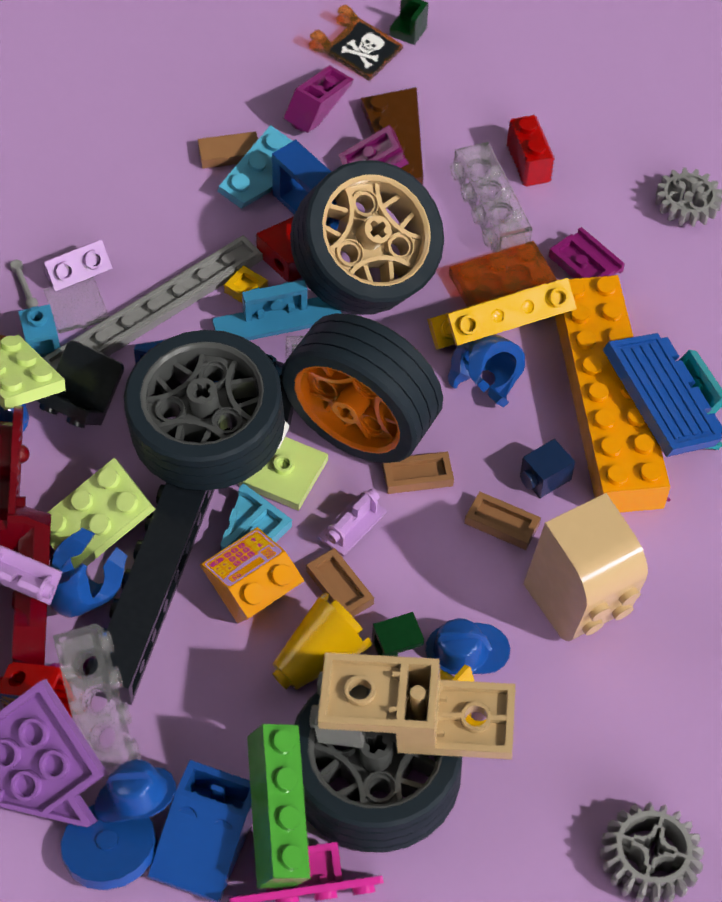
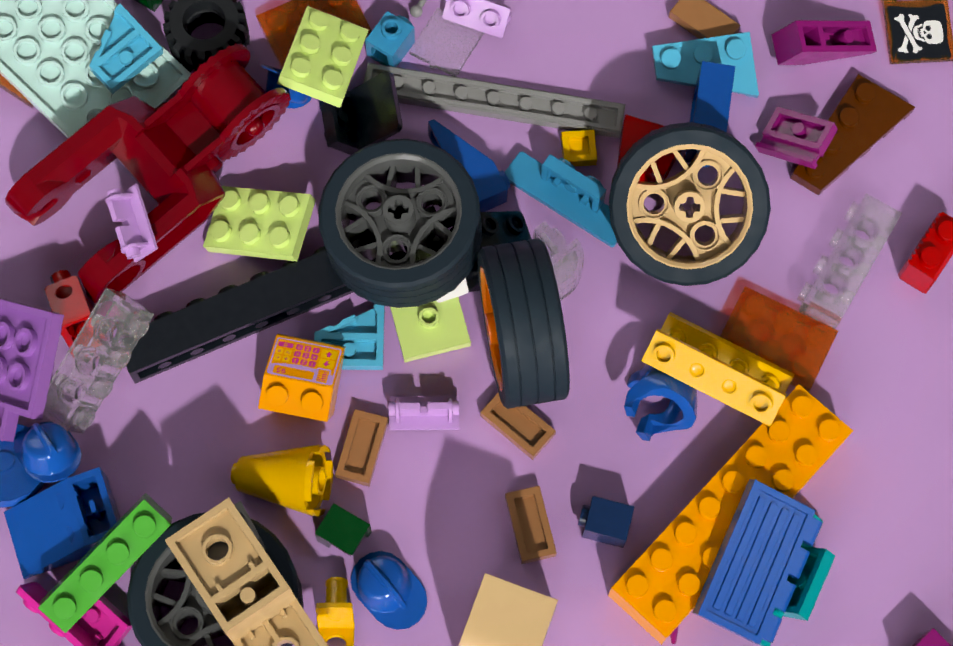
camera: 50 degrees right, 15 degrees up
(75, 591) = (183, 263): blue piece -> none
(585, 256) = (859, 389): magenta plate -> none

